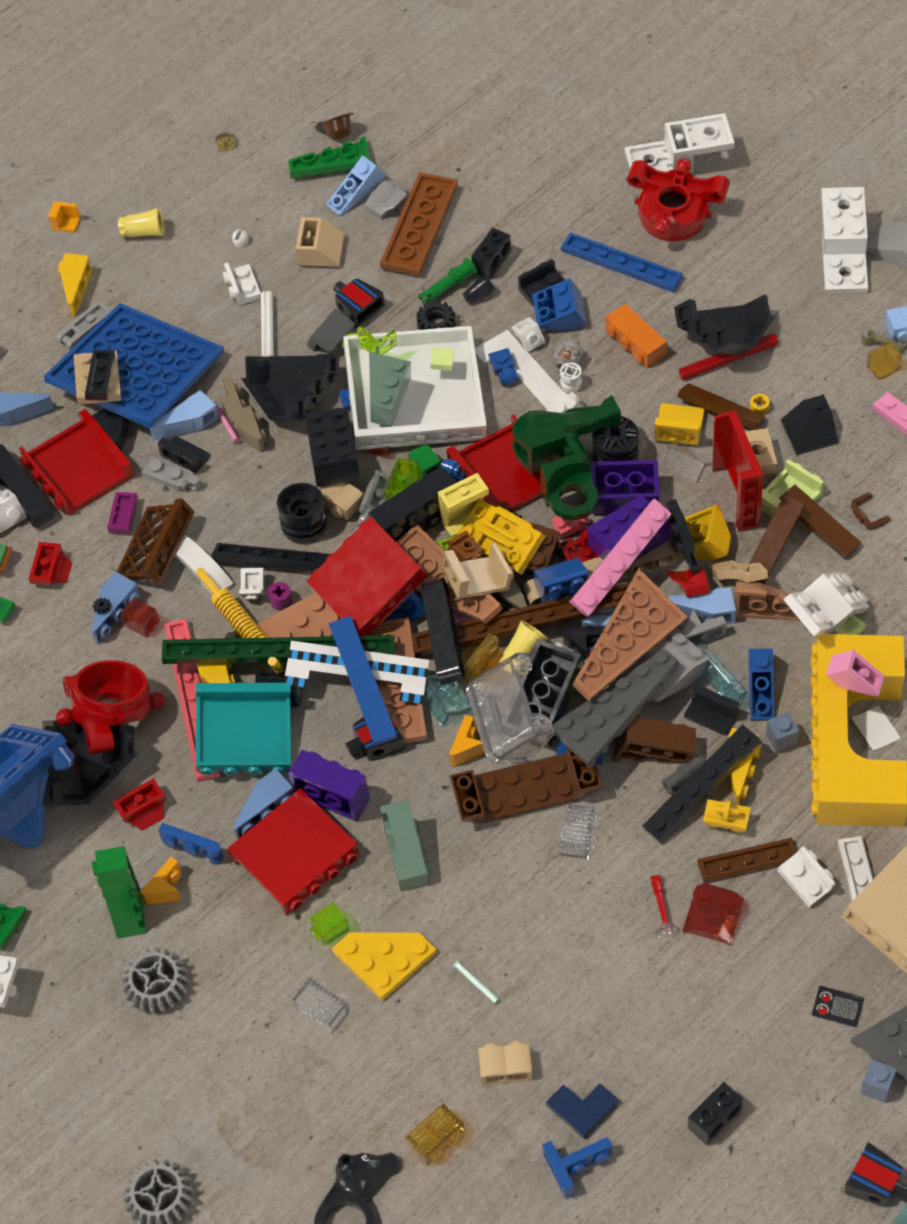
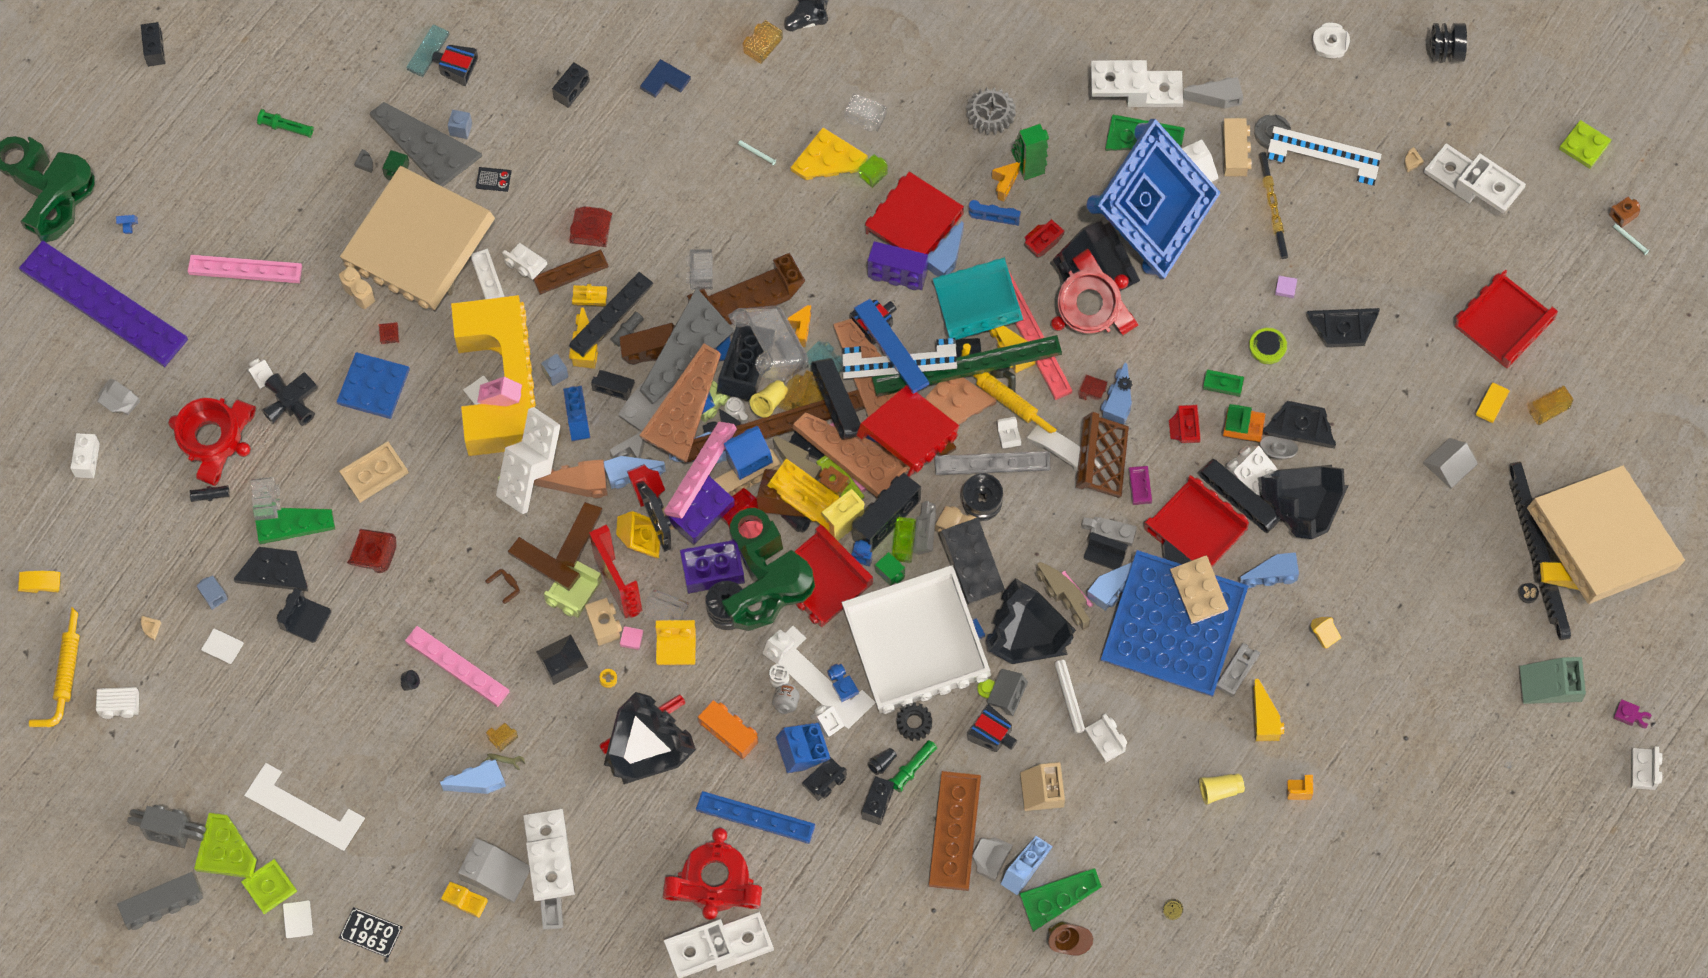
camera: 165 degrees right, 10 degrees up
(100, 375) = (1192, 579): black tile -> none
(243, 238) = (1127, 793): white hinge -> none
(284, 599) = (981, 432): magenta wheel -> none
(373, 345) = (962, 658): clear neon green bracket -> none
(387, 387) = (935, 613): sand green wedge -> none
(405, 846) = (829, 233): sand green wedge -> none
(442, 359) = (895, 662): yellowish green tile -> none
(478, 575) = (817, 446): tan panel -> none
(505, 1063) = (723, 95): tan brick -> none
(575, 1162) = (663, 39): blue bracket -> none
(667, 930) = (623, 206): piece -> none
(719, 405) = (641, 667): reddish brown tile -> none
(721, 678) = (613, 413): clear light blue tile -> none
(739, 571) = (613, 504): tan tile -> none

